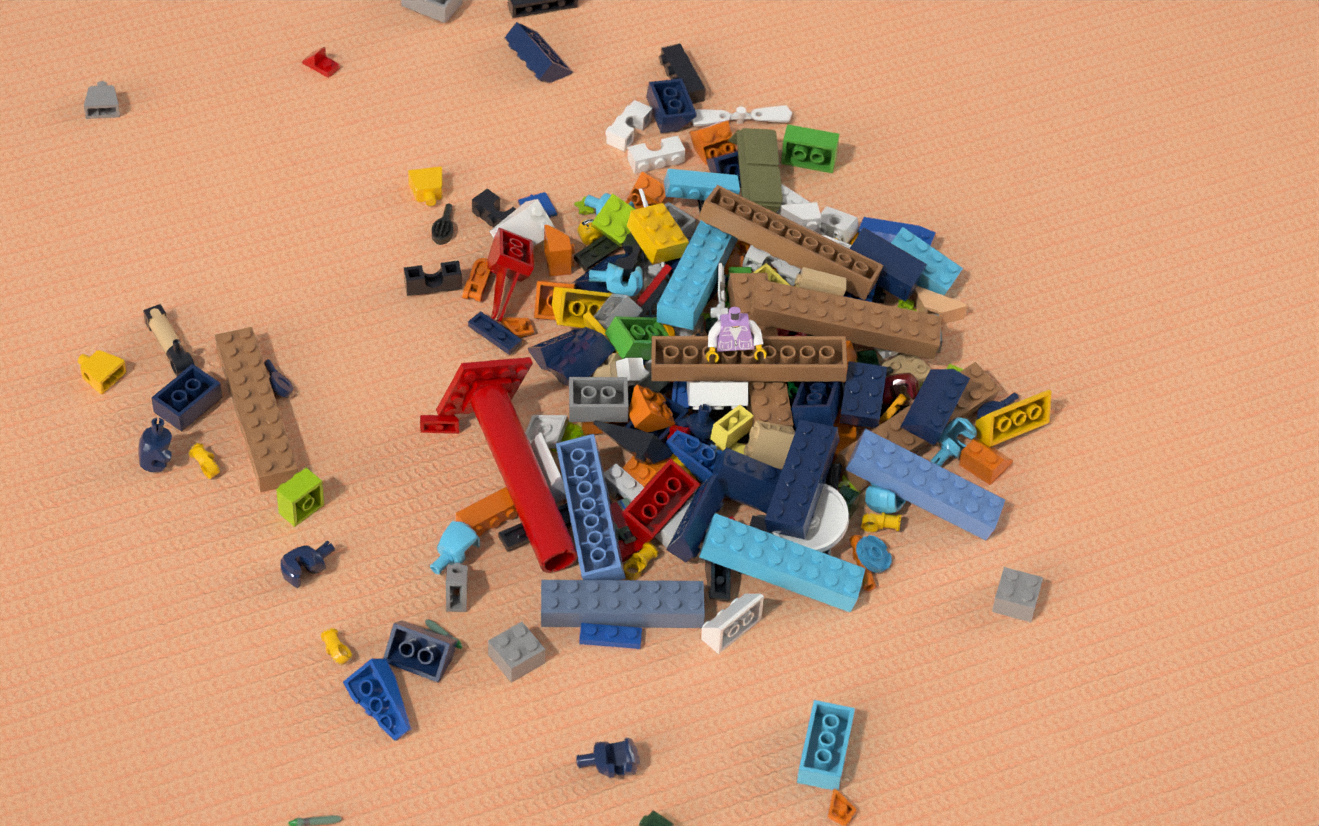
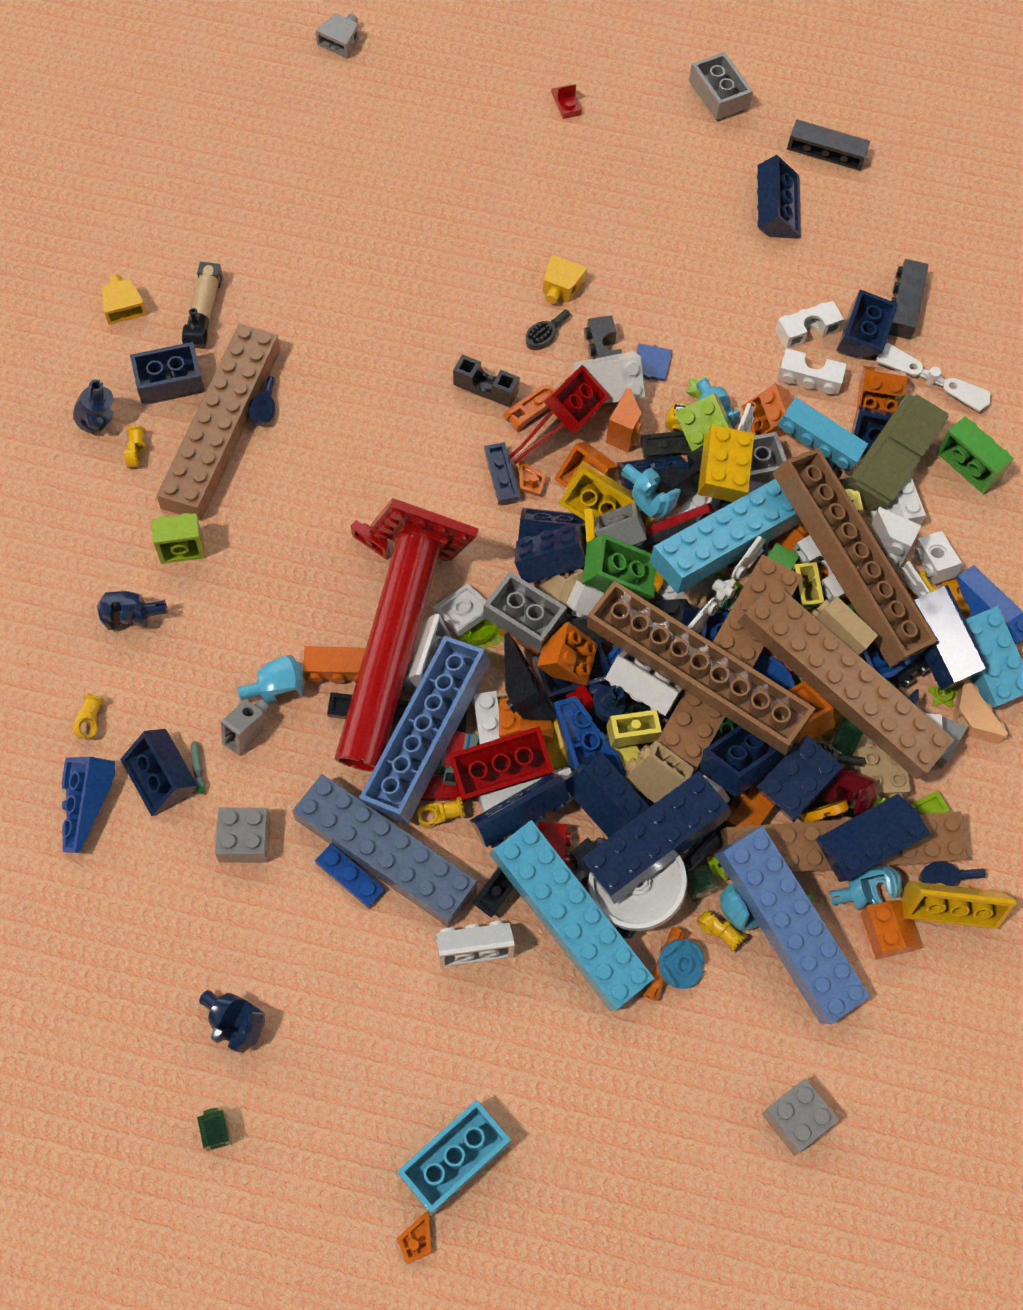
camera: 35 degrees right, 15 degrees up
(733, 333) = (692, 633): torso -> none

